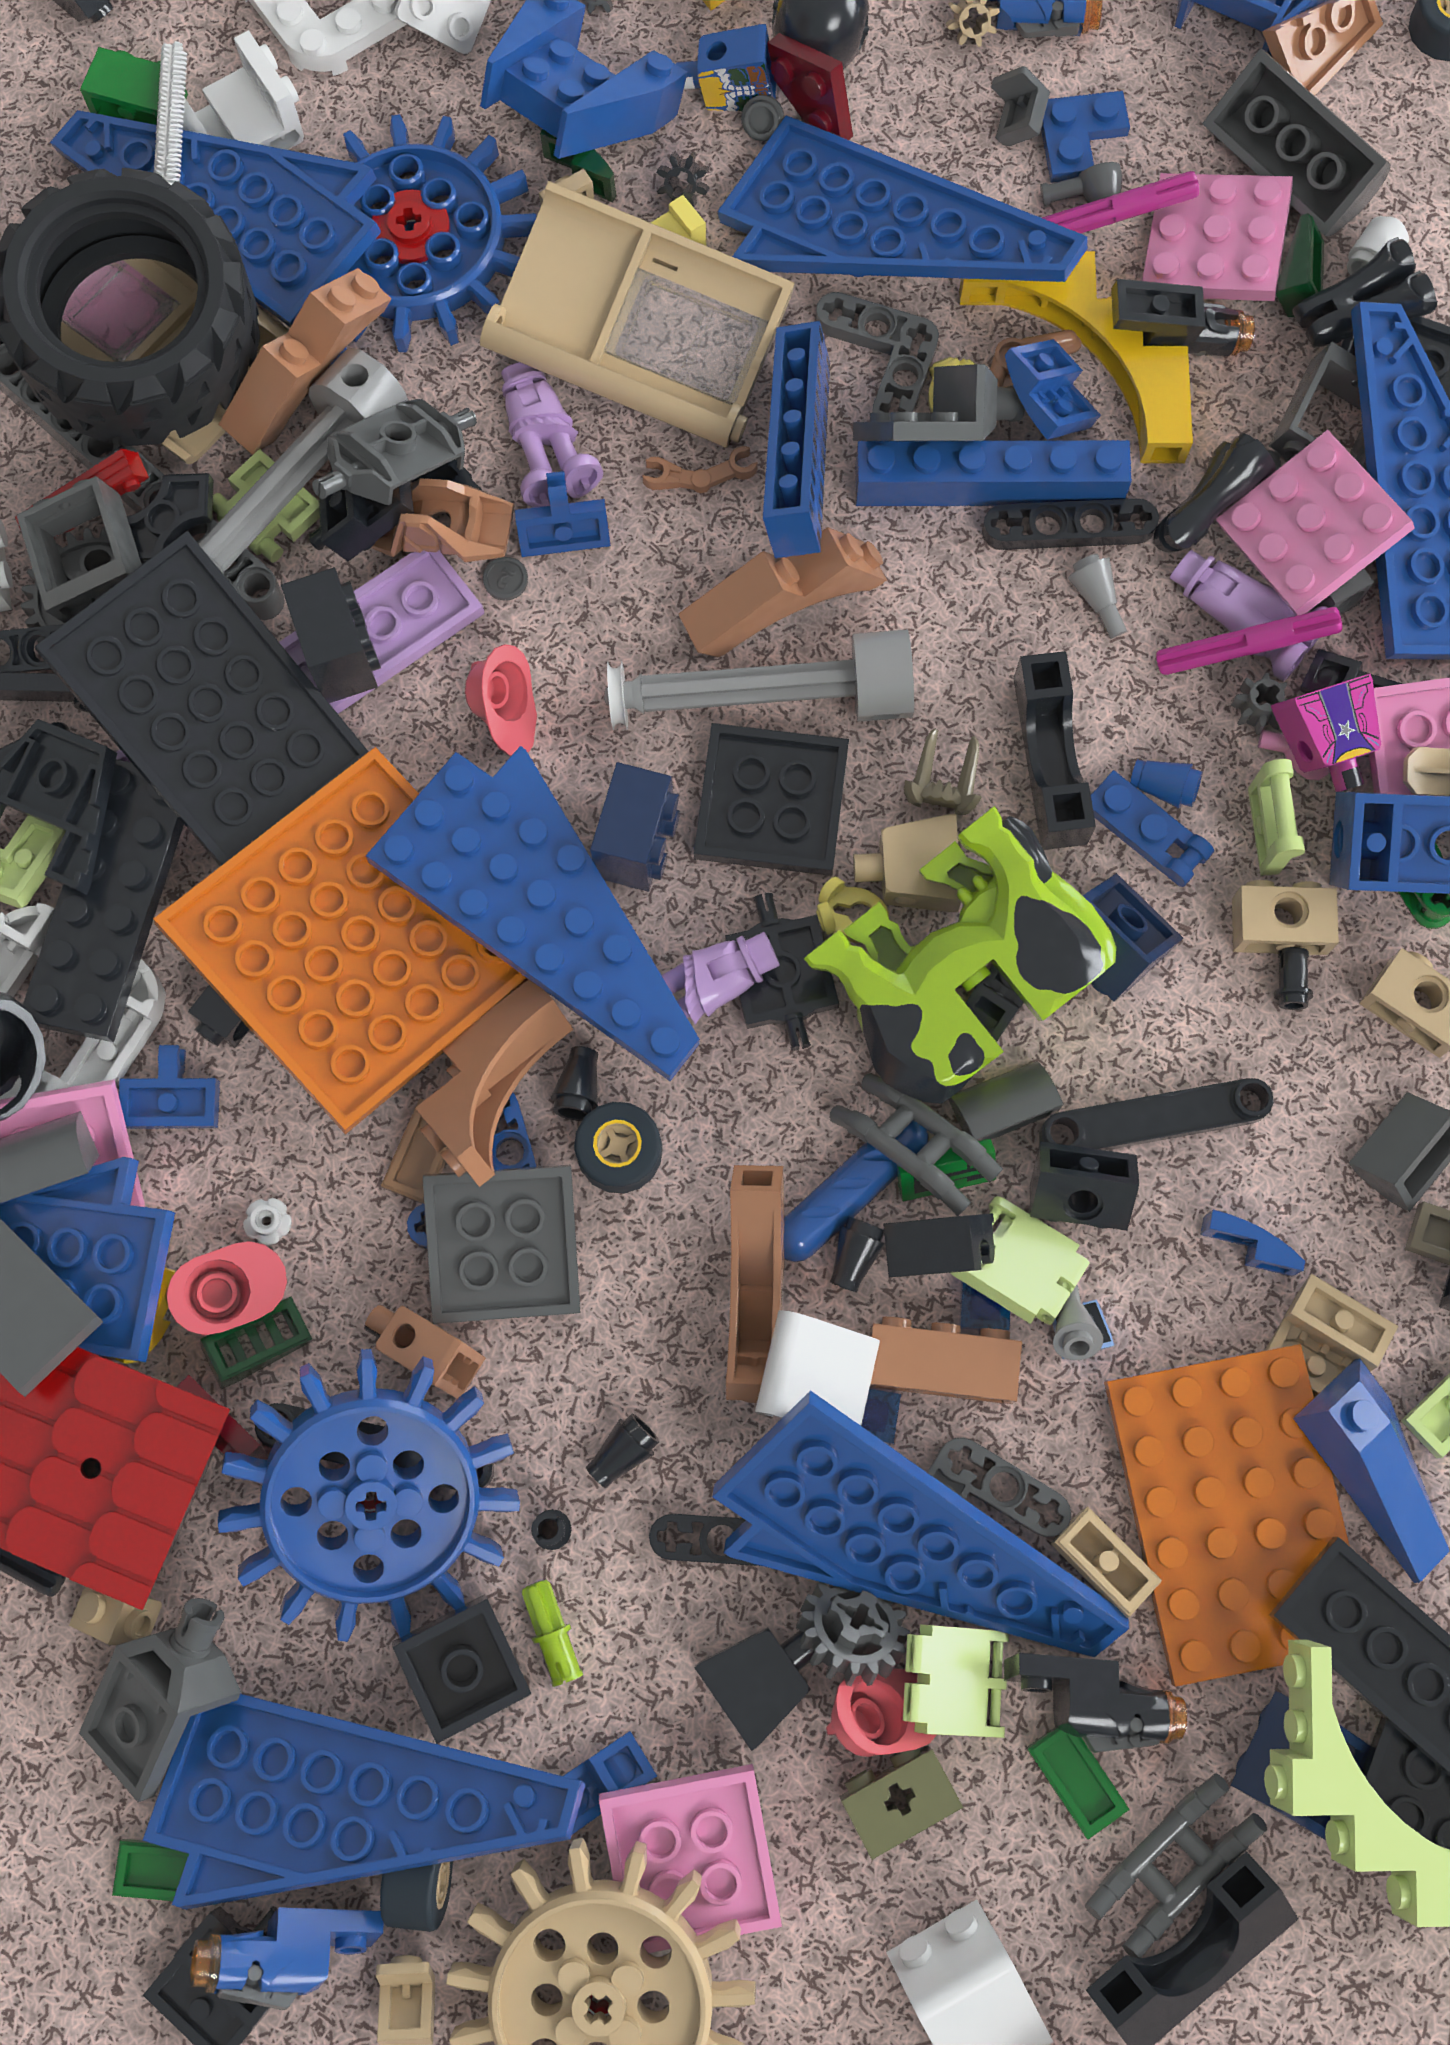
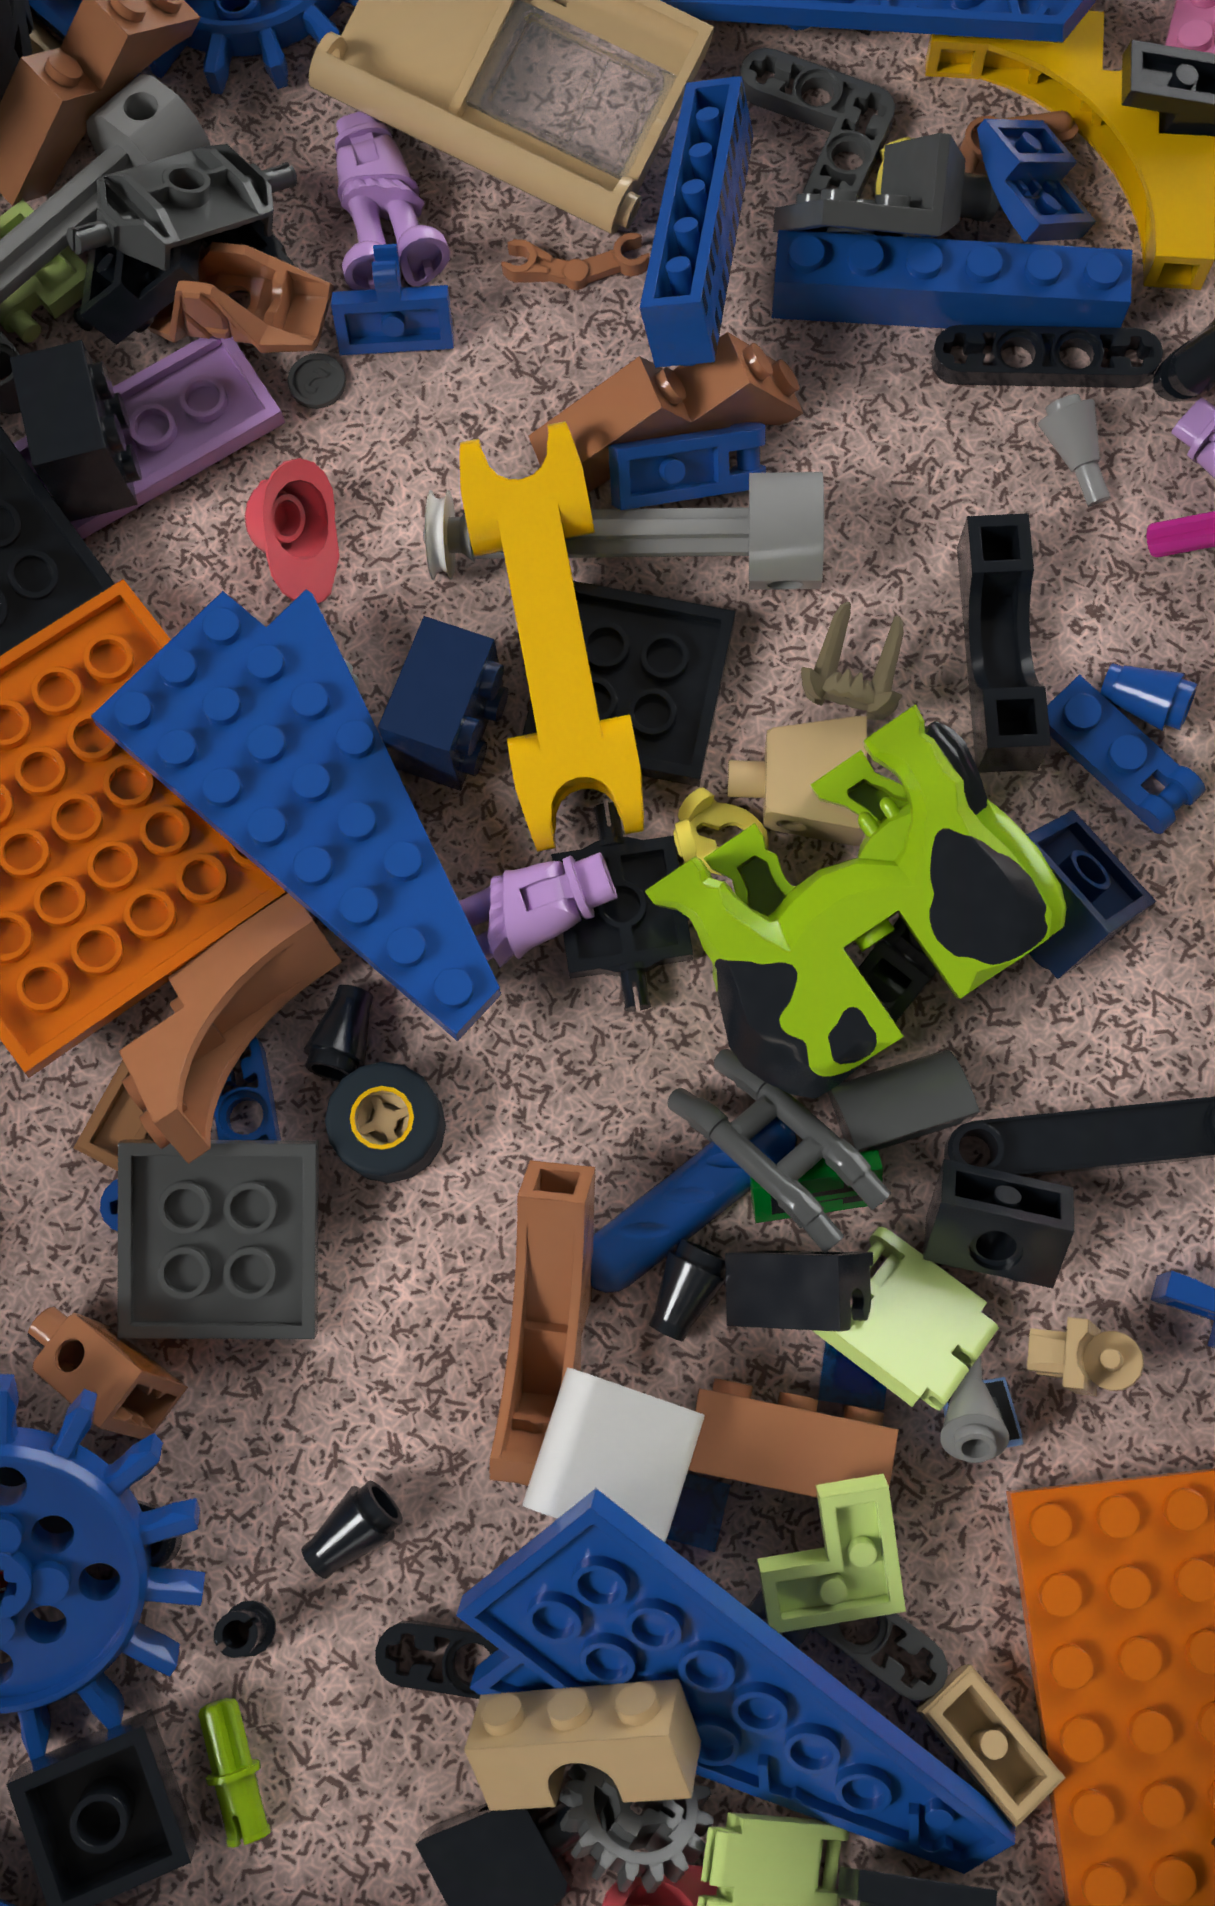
camera: 10 degrees right, 0 degrees up
(735, 850) = (571, 744): none -> yellow piece
(802, 630) = (684, 465): none -> blue plate
(846, 1567) = (628, 1730): none -> tan arch
(997, 1446) = (850, 1576): none -> yellowish green plate
(1154, 1277) = (1085, 1357): none -> tan hips

